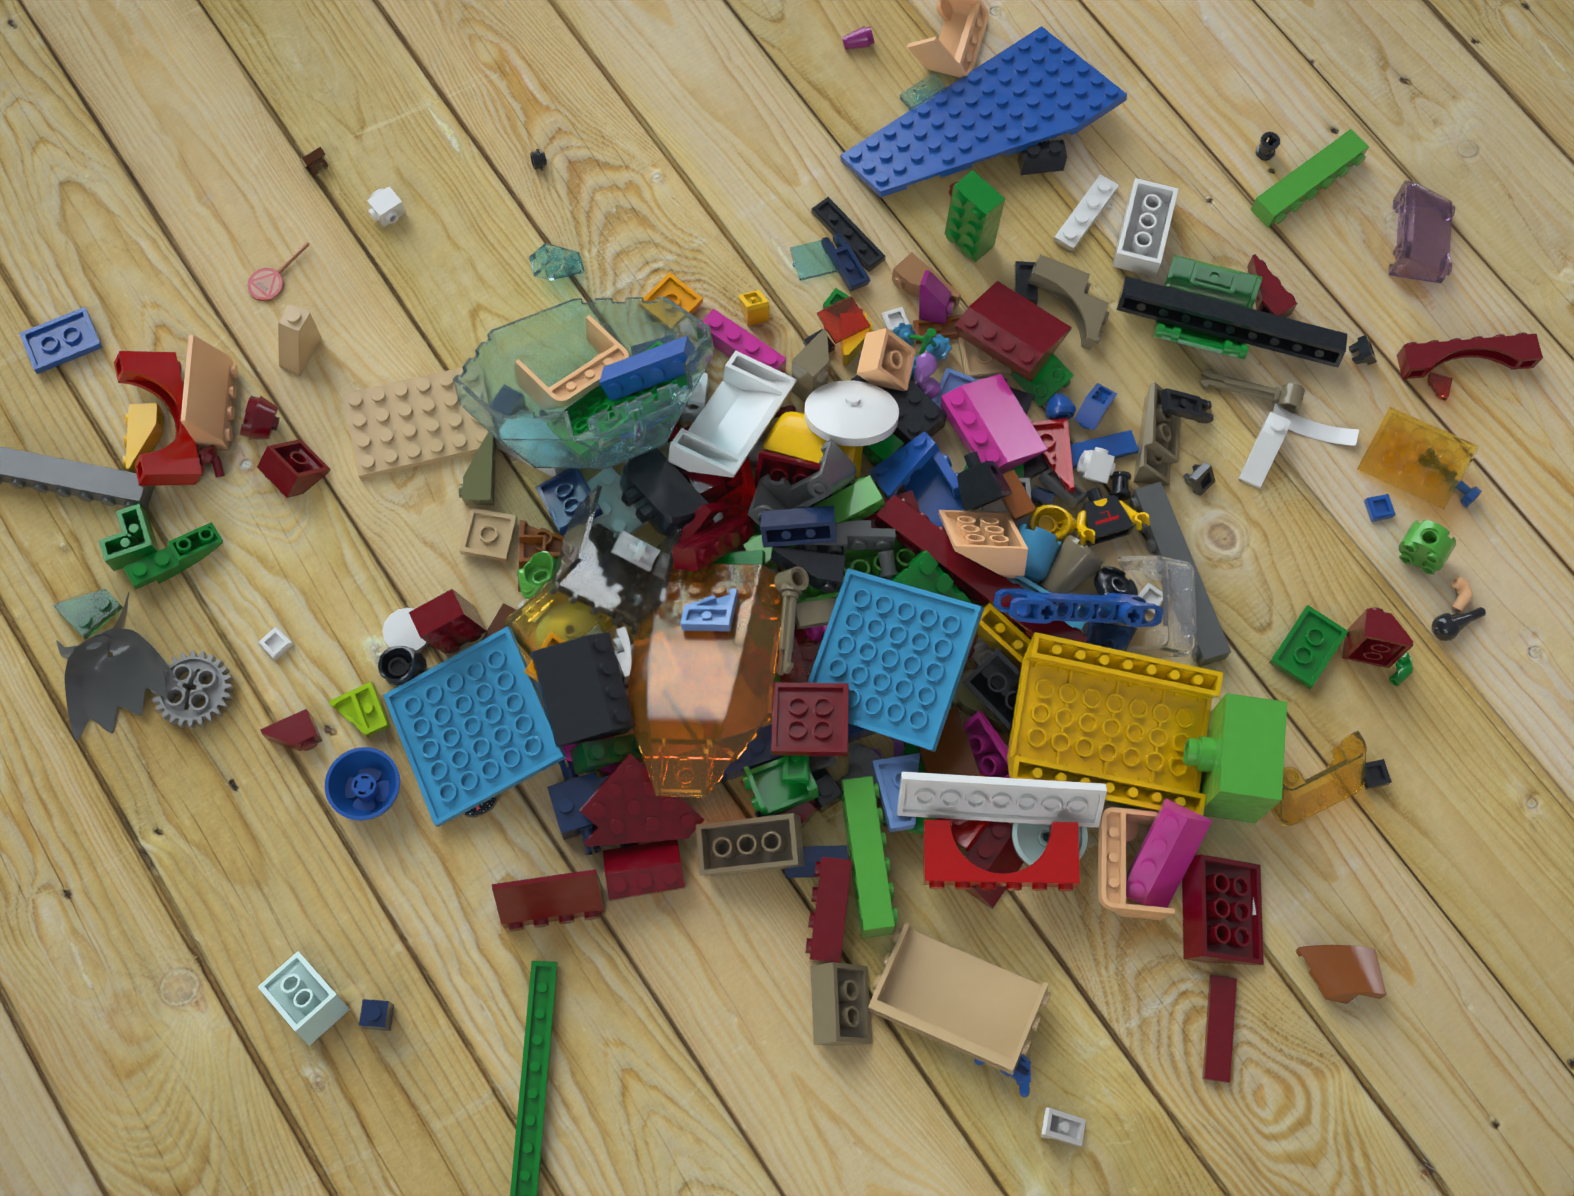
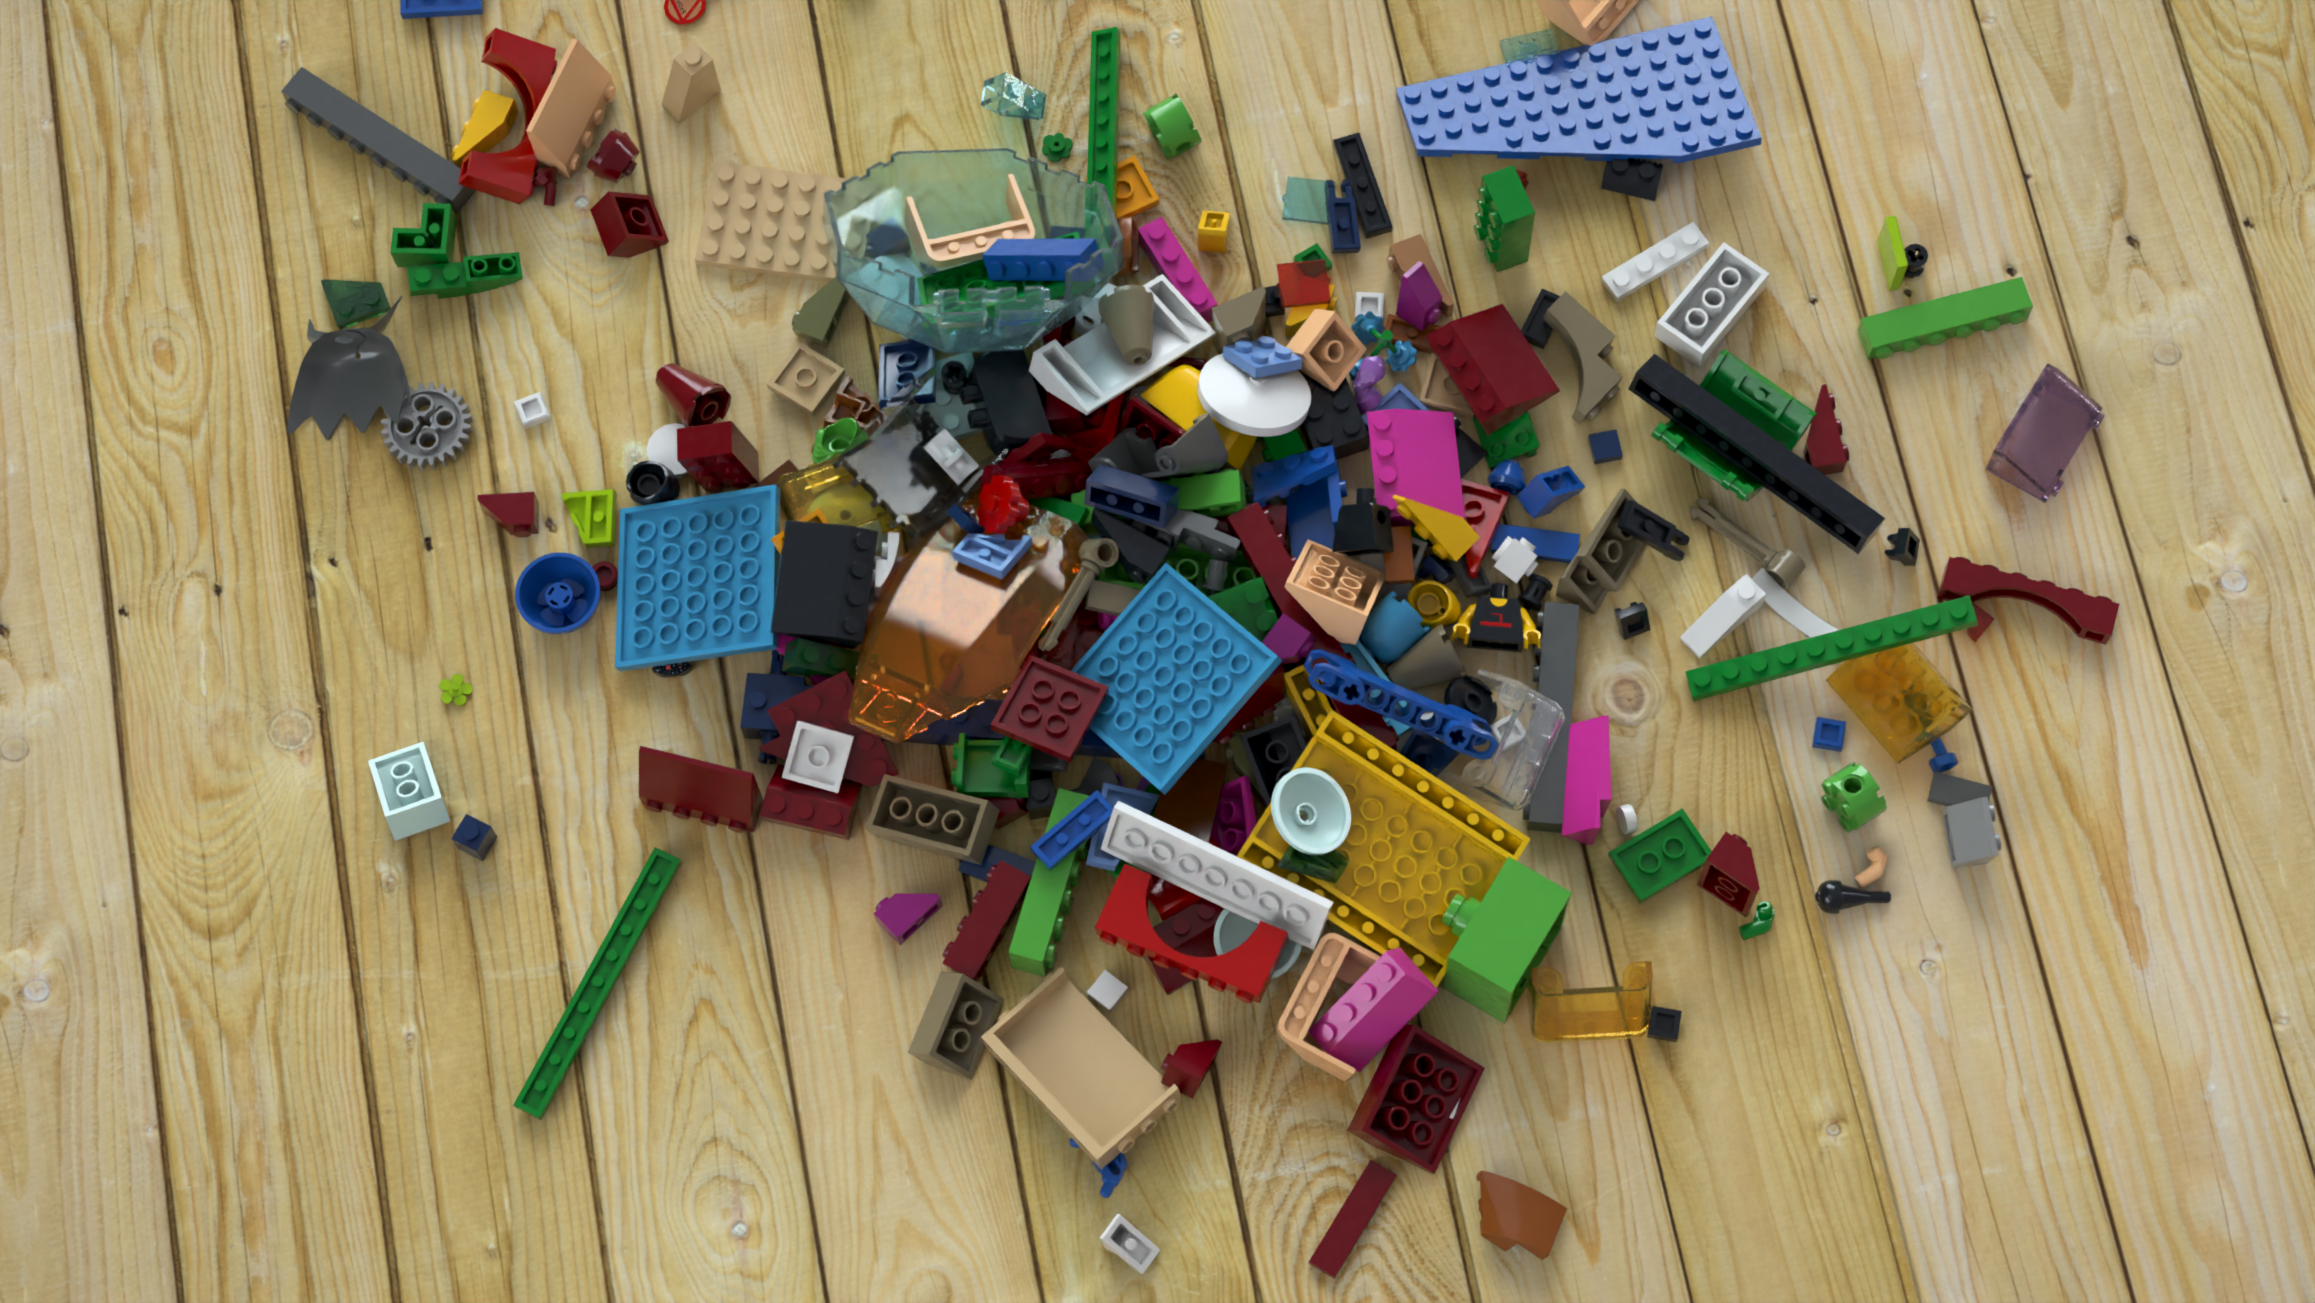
camera: 30 degrees right, 0 degrees up
(307, 897) = (455, 690): none -> lime plant
(394, 751) = (606, 574): none -> dark red tile
(404, 582) = (693, 396): none -> dark red cone
(607, 292) = (1061, 151): none -> green plant
(608, 482) = (957, 370): none -> black bush
(629, 243) = (1104, 110): none -> green plate
(637, 832) = (818, 756): none -> white tile
(677, 595) = (965, 520): none -> dark blue tile
(689, 239) = (1172, 126): none -> bright green brick
(701, 572) = (1001, 505): none -> red plant
(730, 394) = (1130, 321): none -> dark tan cone
(759, 930) = (906, 913): none -> magenta slope
(846, 383) = (1262, 357): none -> medium blue plate
(872, 809) = (1072, 830): none -> blue plate
(945, 925) = (1107, 991): none -> white tile
(973, 589) = (1289, 640): none -> magenta slope
(1042, 463) = (1445, 530): none -> yellow slope
(1044, 961) = (1190, 1065): none -> dark red slope
(1054, 719) = (1322, 807): none -> light aqua dish
(1069, 755) = (1324, 866): none -> clear green wing
(1116, 359) = (1605, 446): none -> dark blue tile
(1234, 609) = (1587, 779): none -> dark pink slope
(1254, 144) = (1892, 253): none -> lime tile
(1270, 629) = (1626, 819): none -> white tile
(1358, 442) = (1832, 648): none -> green plate
(1492, 514) = (1952, 790): none -> dark grey tile
(1522, 539) = (1971, 833): none -> light grey slope

